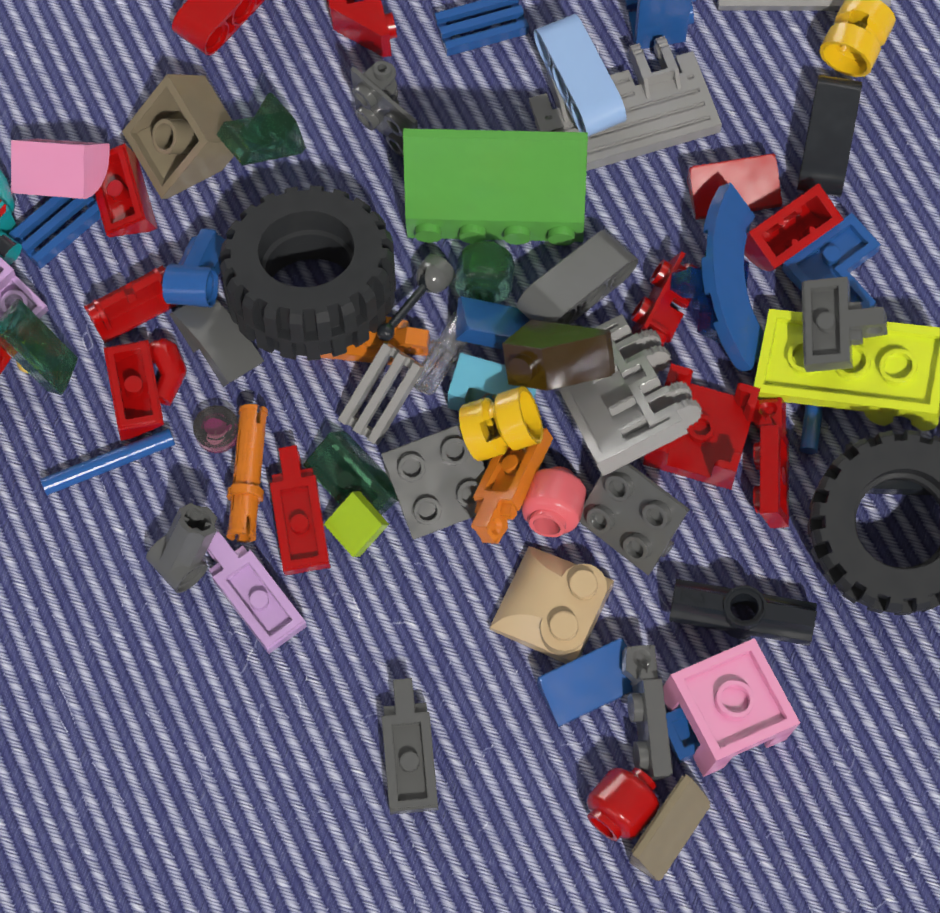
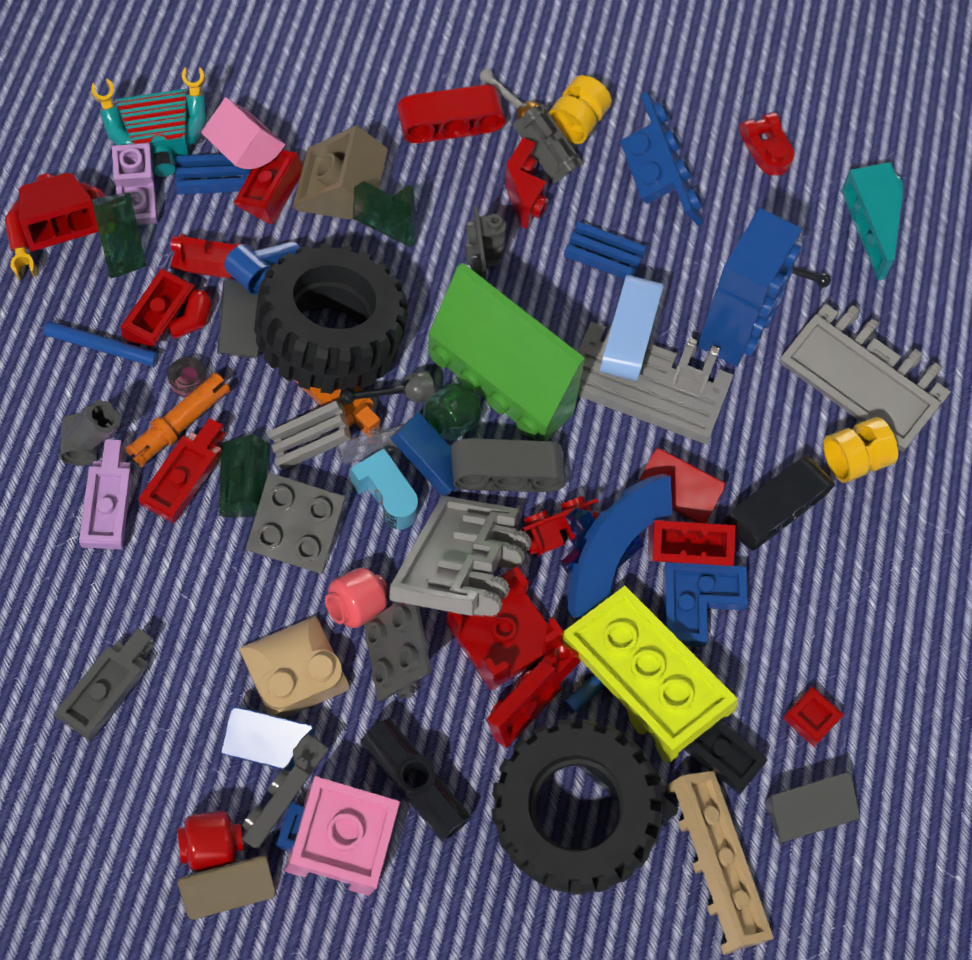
camera: 30 degrees right, 5 degrees down
(356, 524) = (214, 508): lime tile -> none
(505, 488) = (338, 557): orange hinge -> none
(506, 422) = (364, 514): yellow wheel -> none
(557, 355) = (439, 496): dark brown slope -> none
(835, 324) = (656, 628): dark grey hinge -> none

